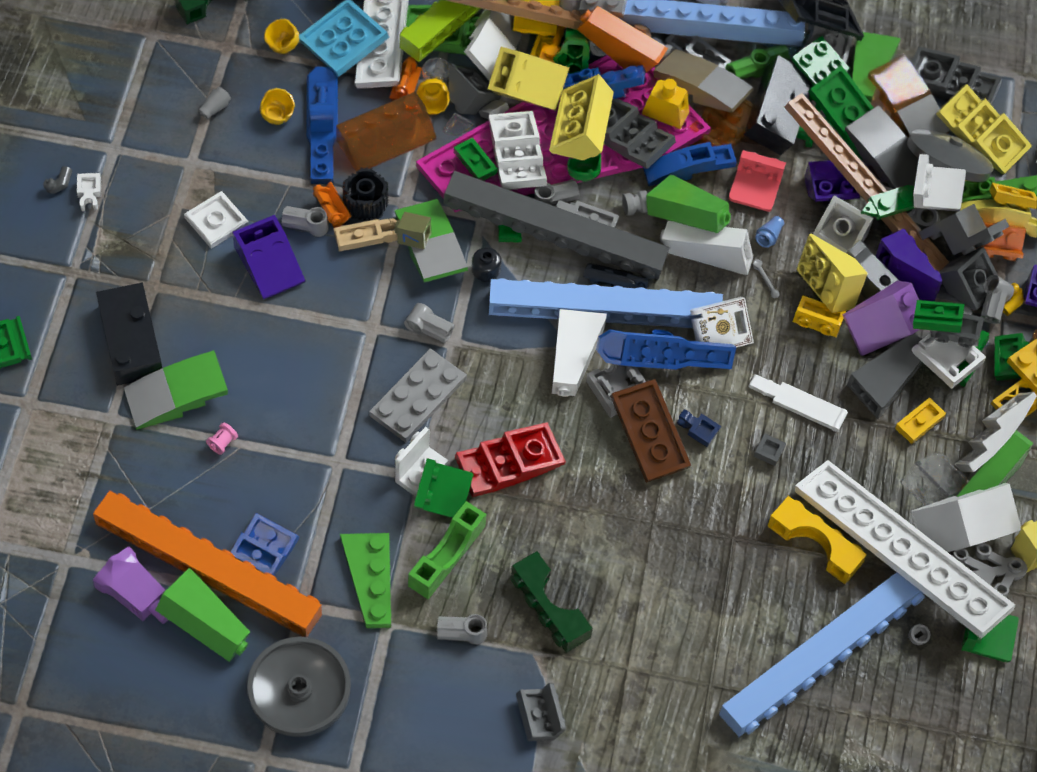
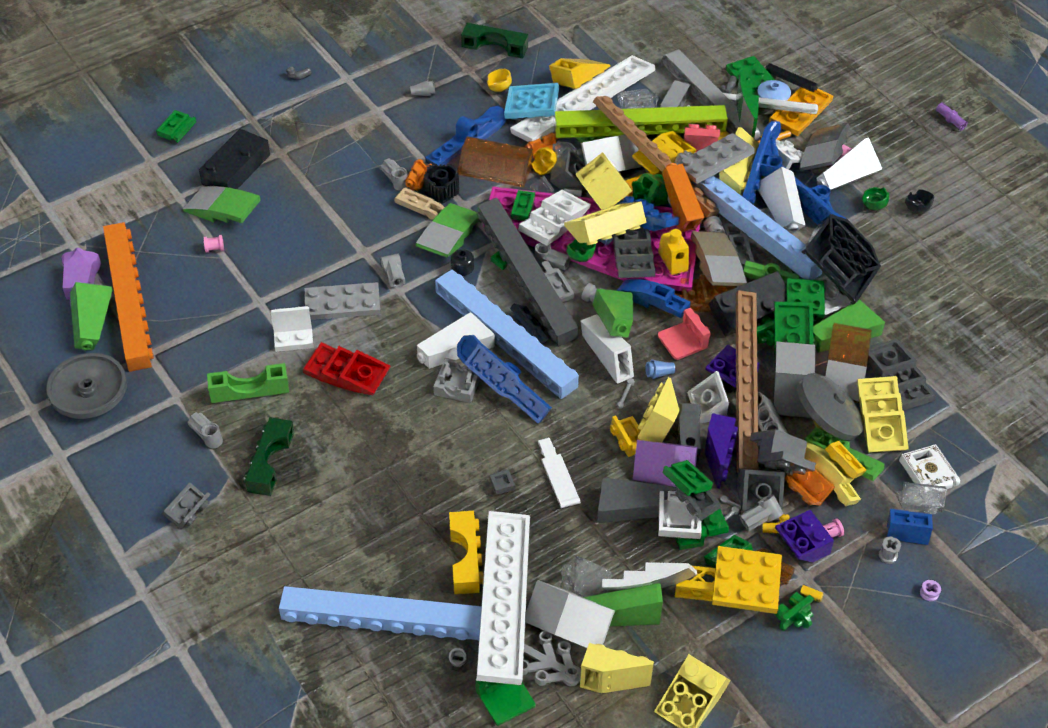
camera: 50 degrees right, 10 degrees down
(88, 189) = (306, 85): white plate -> none
(216, 219) = (352, 144): white tile -> none
(265, 544) = (167, 310): blue slope -> none
(268, 257) = (350, 175): dark purple slope -> none
(277, 106) = (451, 110): yellow hair -> none
(370, 571) = (206, 359): bright green wing -> none
(413, 230) = (438, 213): olive brick -> none
(442, 489) = (285, 347): green bracket -> none
(650, 430) = (440, 414): reddish brown plate -> none
(701, 428) = (475, 438): dark blue plate -> none
(719, 323) = (554, 390): white container -> none
(890, 202) = (756, 403): green plate -> none
(920, 420) = (620, 542): yellow plate -> none
(938, 186) = (783, 406): white bracket -> none

